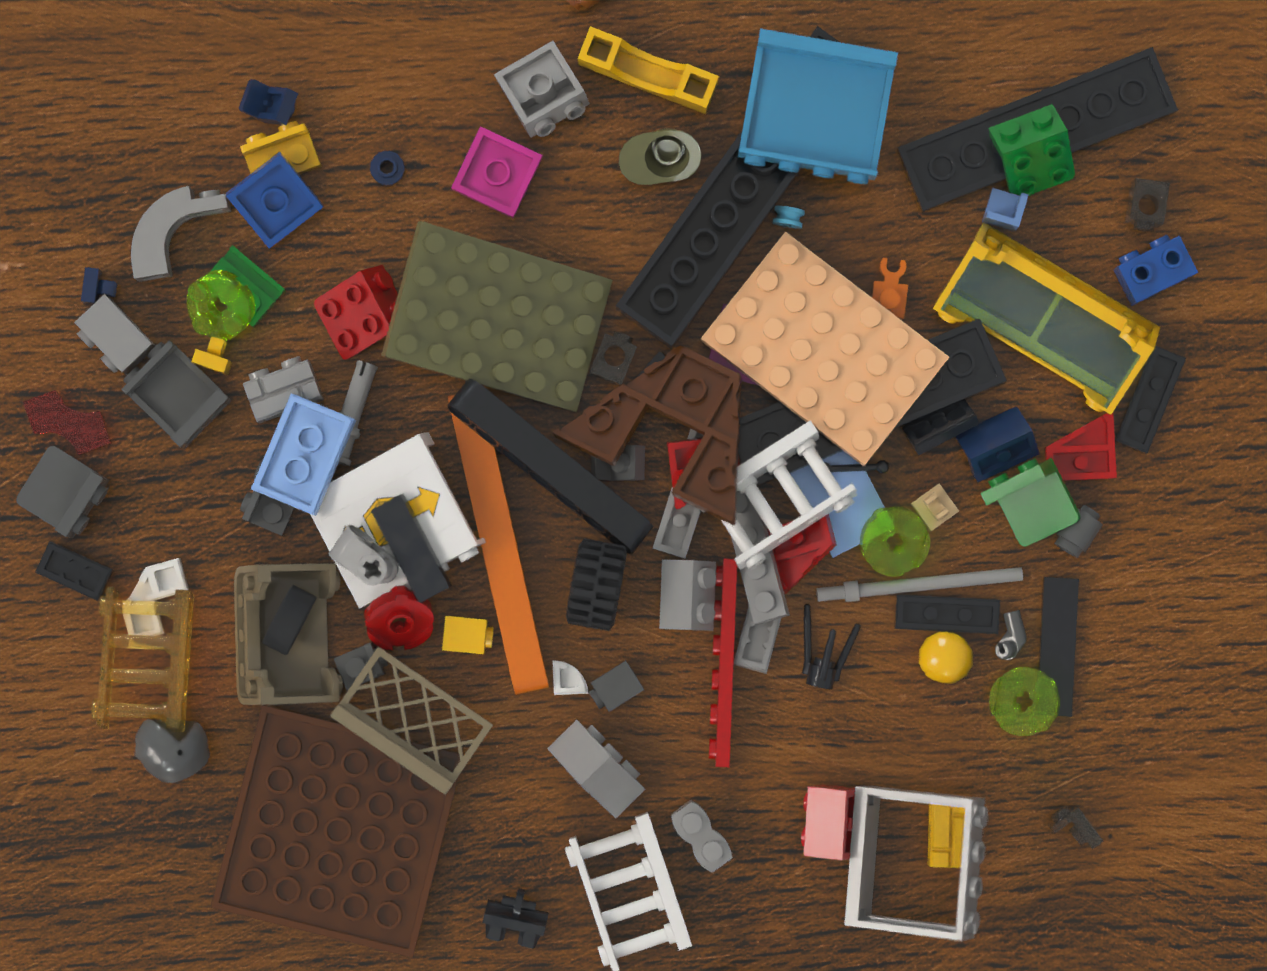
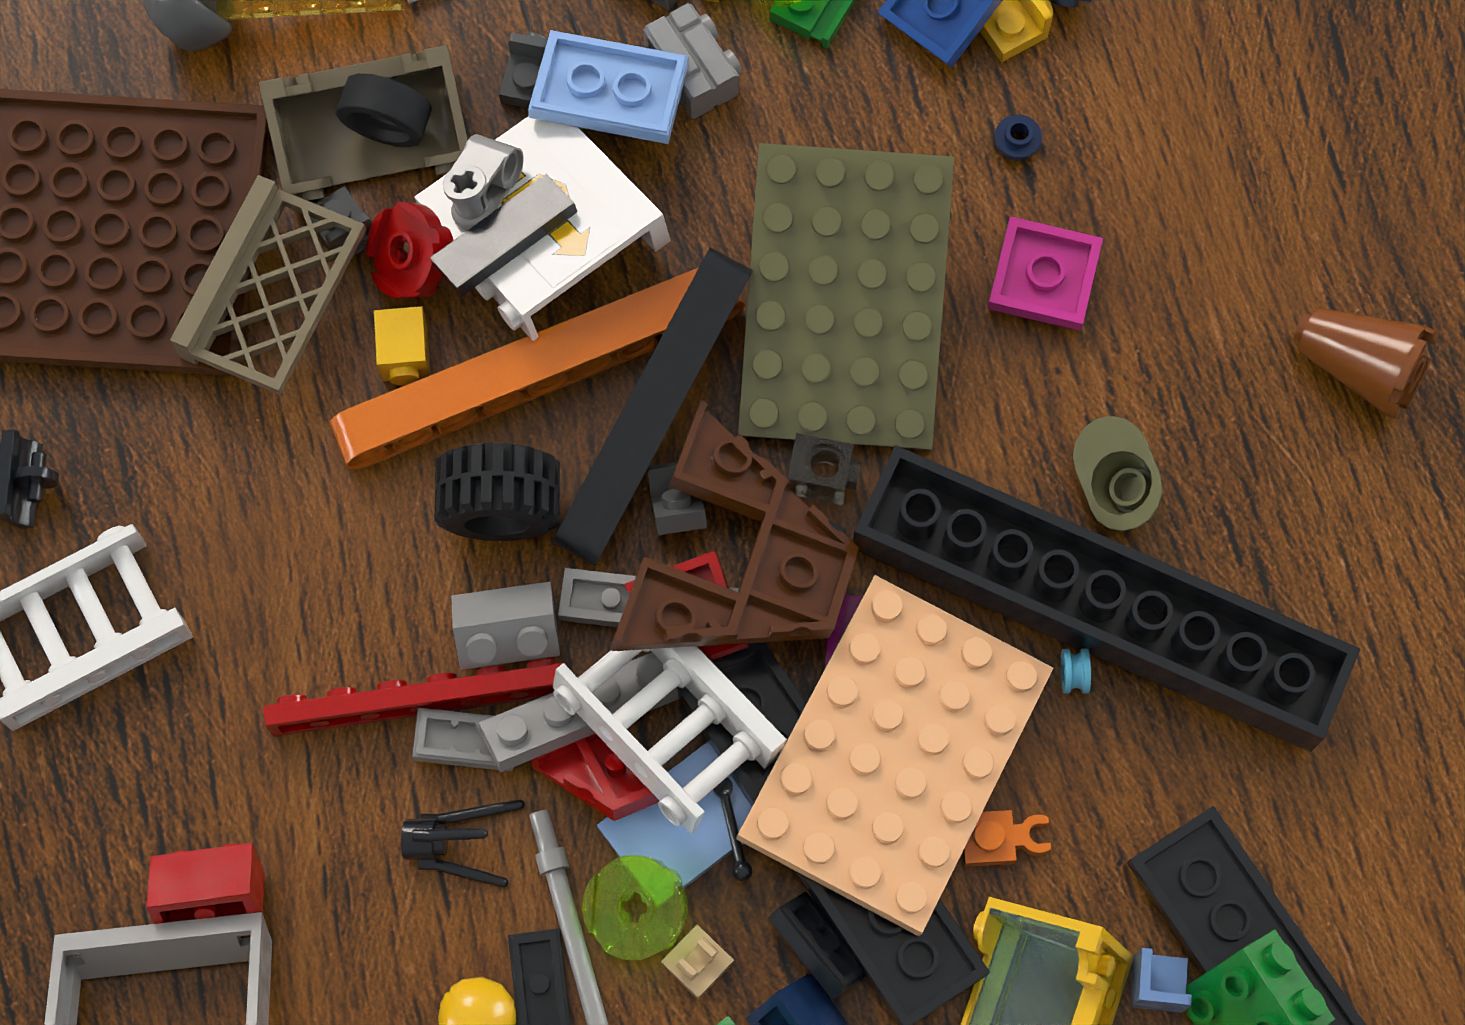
camera: 80 degrees right, 15 degrees down
(355, 403) = (682, 150): light grey pin -> none
(358, 310) = (820, 119): red bracket -> none
(542, 90) = (1171, 309): light grey plate -> none
(568, 679) = (363, 493): white tile -> none
(597, 767) = (235, 542): light grey brick -> none
(615, 687) = (361, 555): dark grey brick -> none
(655, 75) = (1235, 421): yellow arch -> none
(707, 843) = (154, 717): light grey brick -> none
(817, 106) = (1246, 666): dark azure panel -> none

